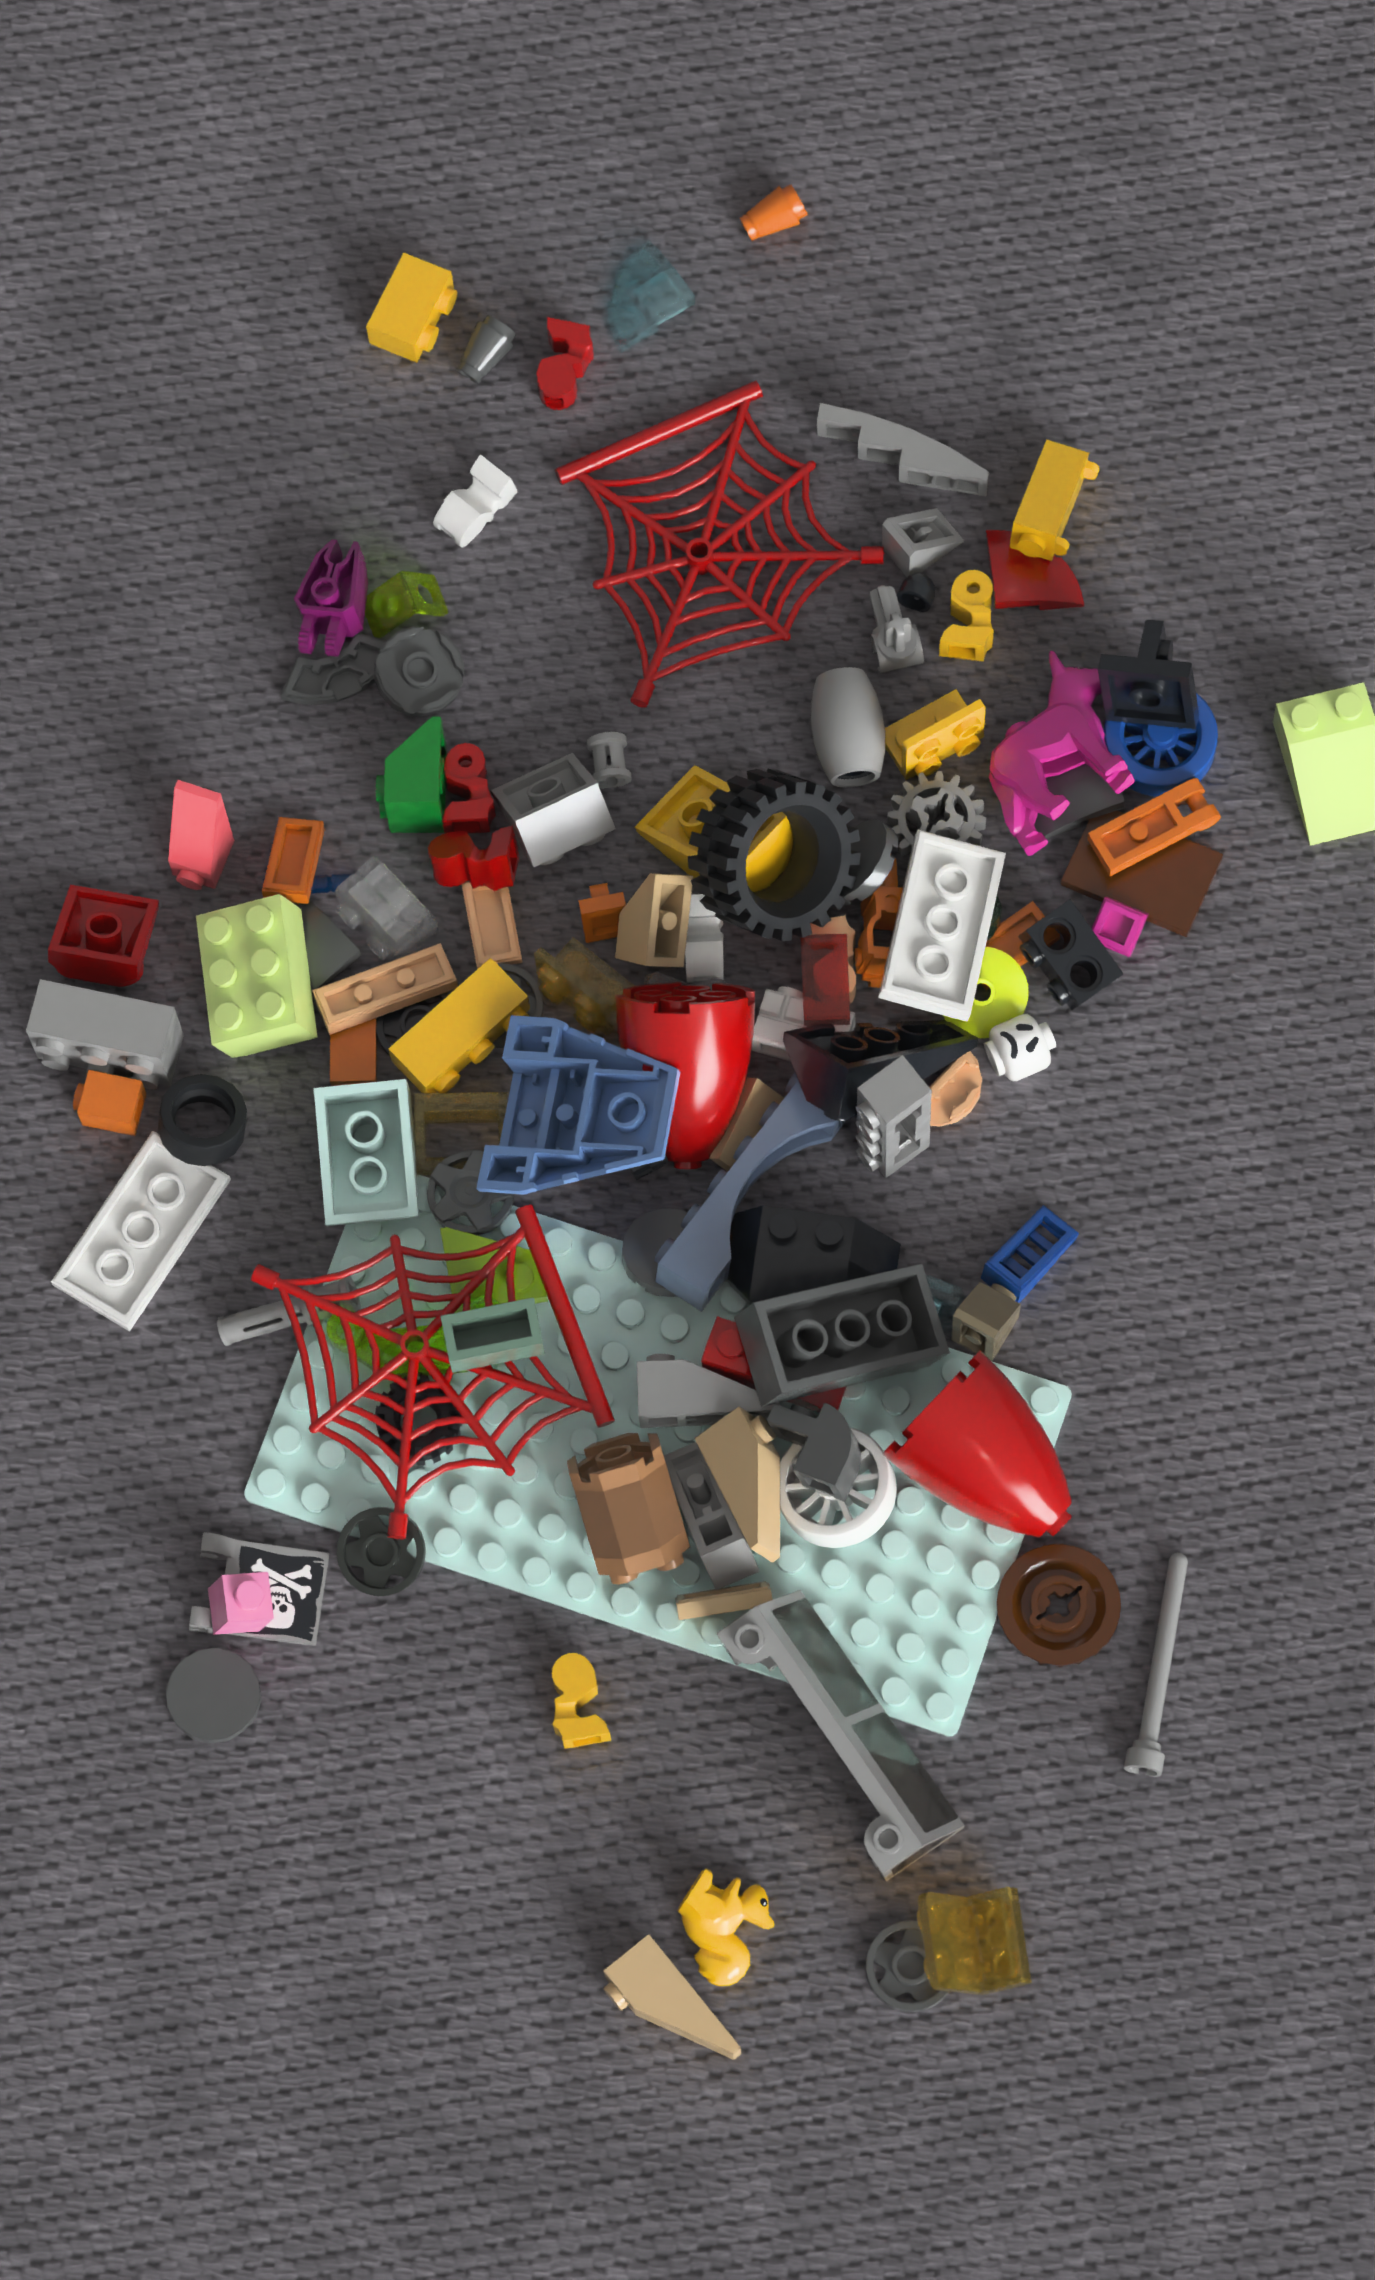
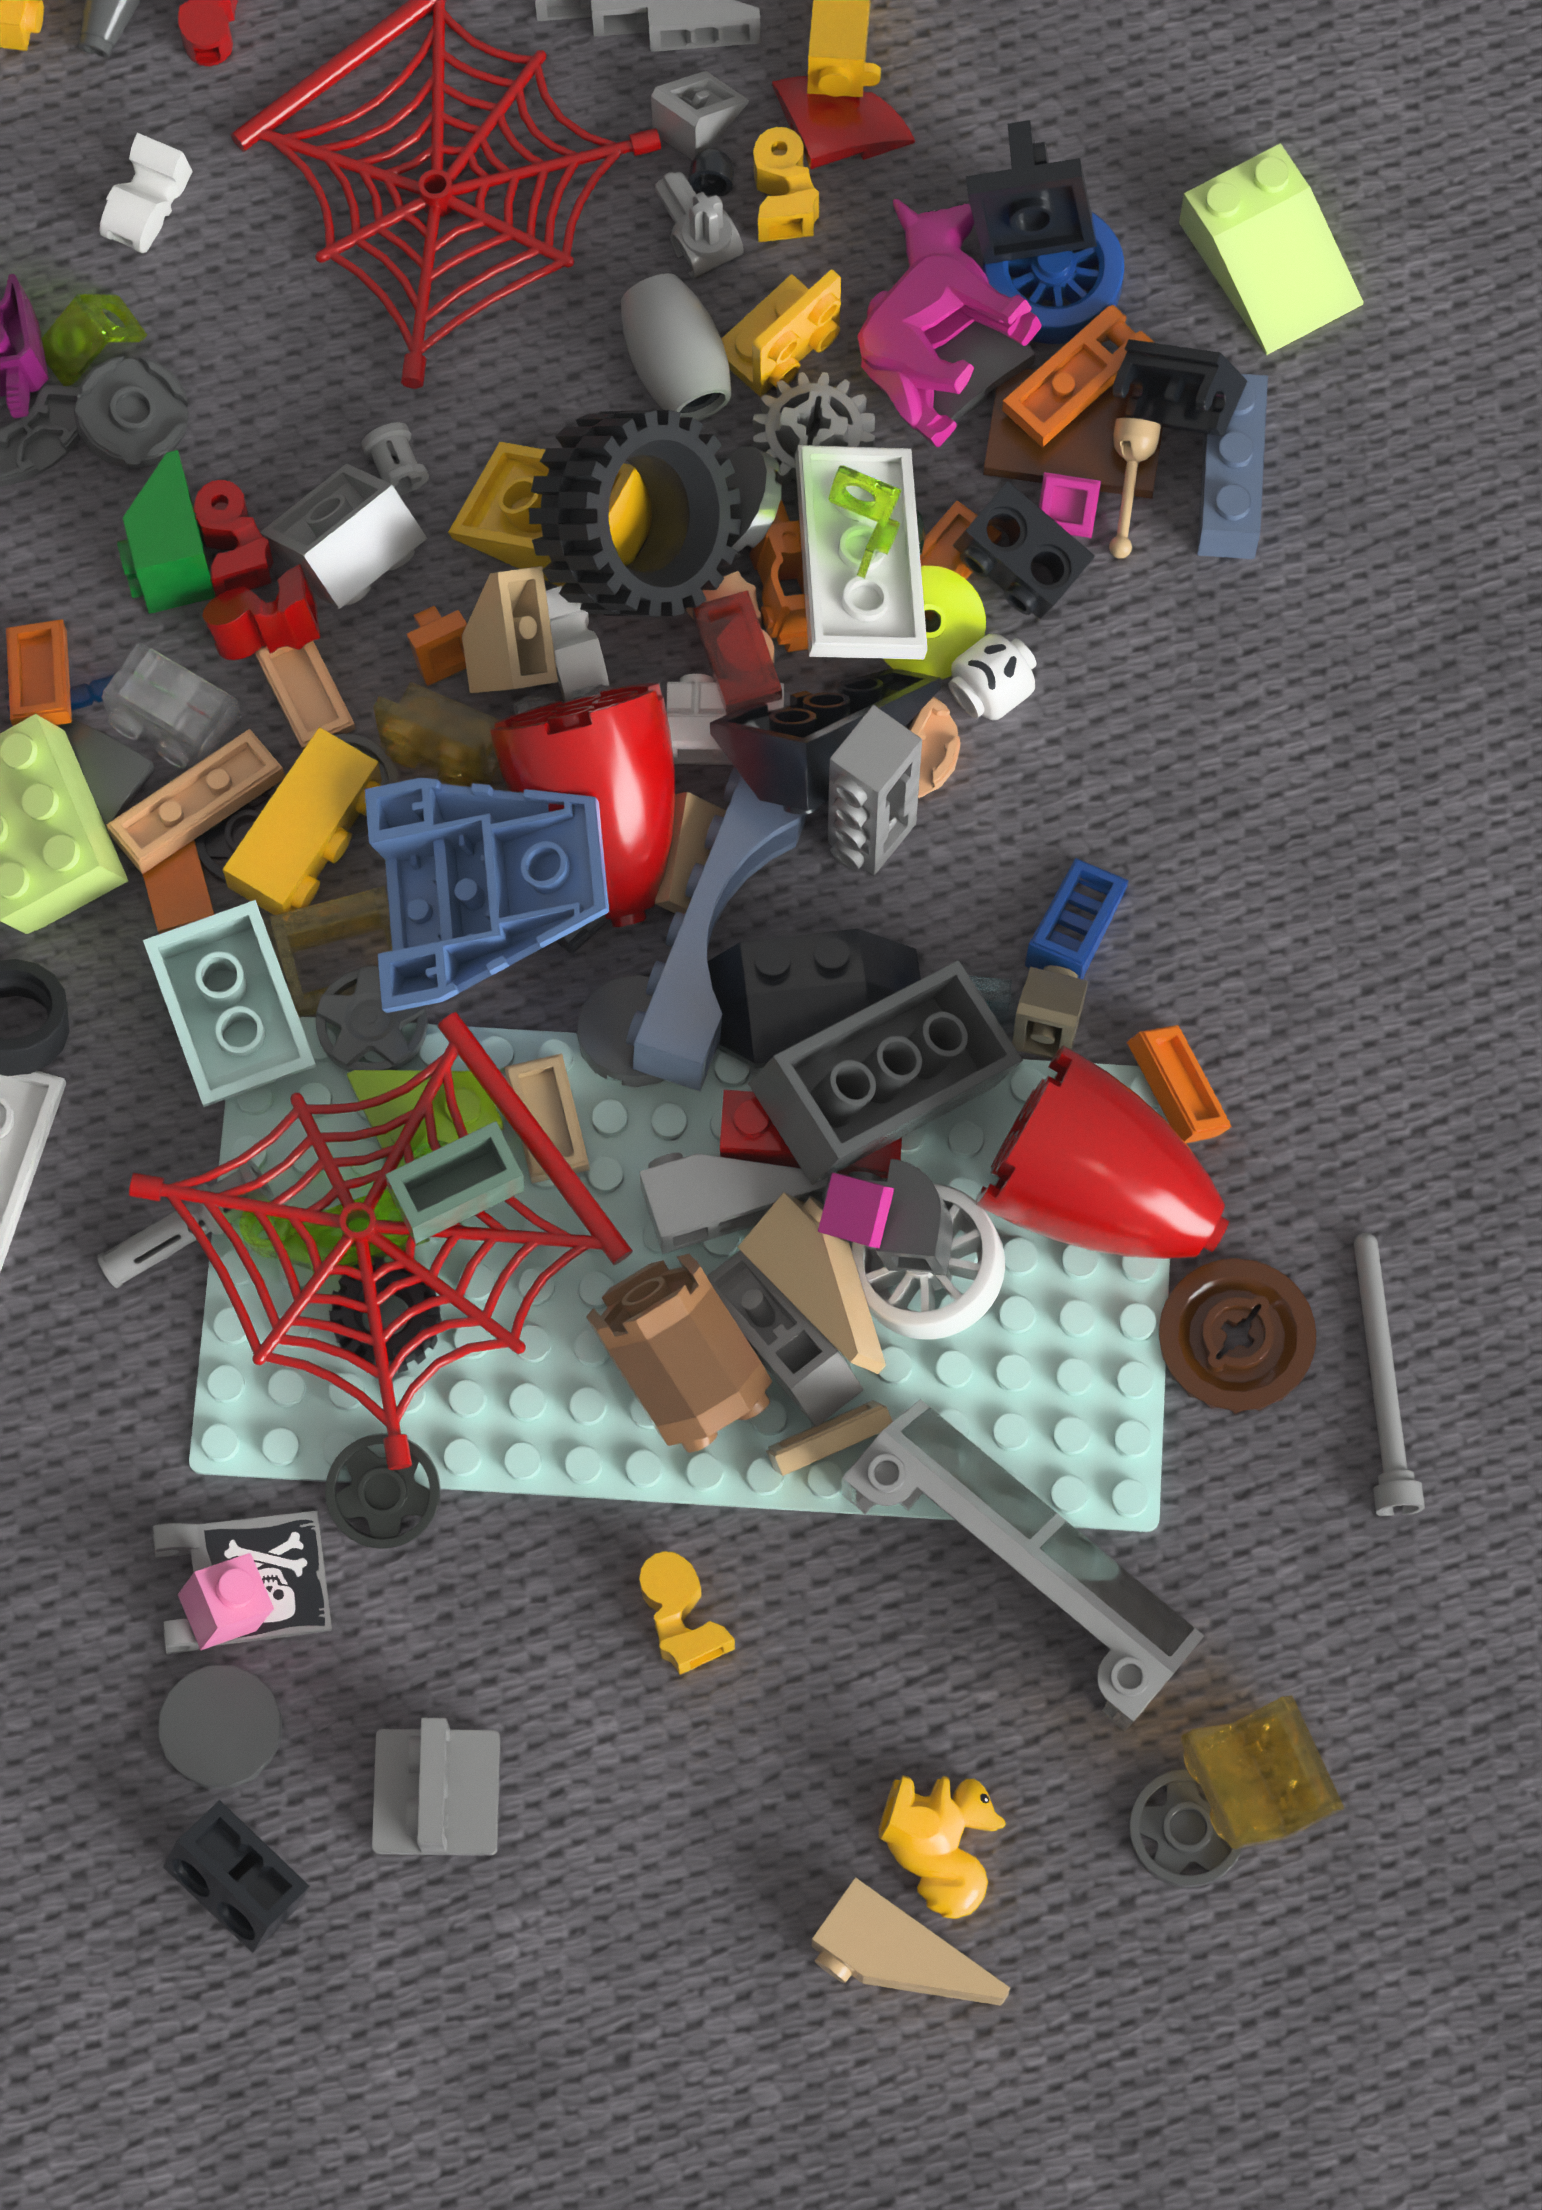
camera: 20 degrees left, 0 degrees up
(193, 1808) = (236, 1876): none -> black brick
(359, 1786) = (436, 1790): none -> light grey bracket
(586, 1289) = (548, 1096): none -> tan tile
(786, 1434) = (856, 1210): none -> dark pink tile
(965, 897) = (880, 510): none -> clear neon green bracket
(1070, 1401) = (1179, 1083): none -> orange tile
(1182, 892) = (1134, 442): none -> tan hinge
(1225, 858) = (1179, 387): none -> black hinge
(1253, 928) = (1235, 478): none -> sand blue brick

